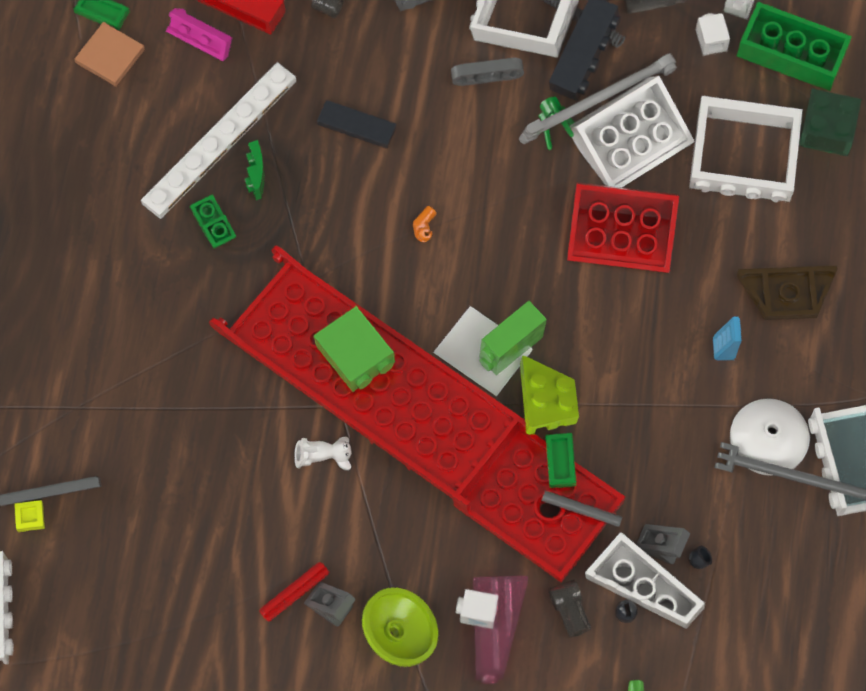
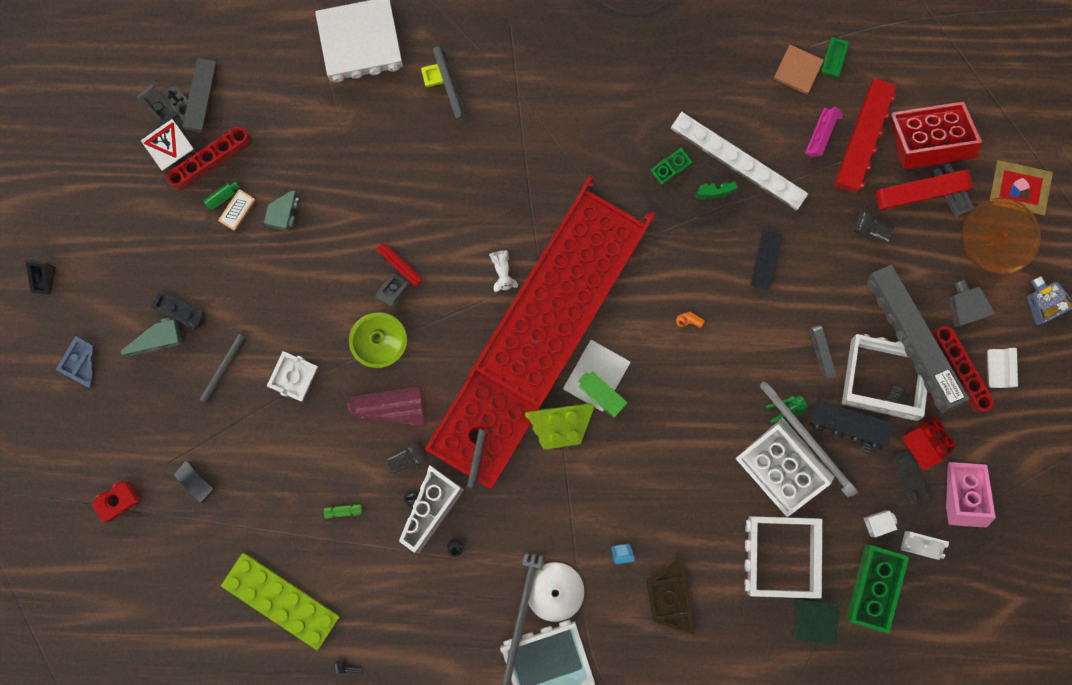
camera: 85 degrees right, 15 degrees up
(355, 349) = (576, 281): bright green brick -> none
(477, 608) = (392, 391): white brick -> none
(560, 460) = (513, 439): green tile -> none
(623, 227) = (707, 468): red slope -> none
(663, 542) = (462, 519): dark grey slope -> none

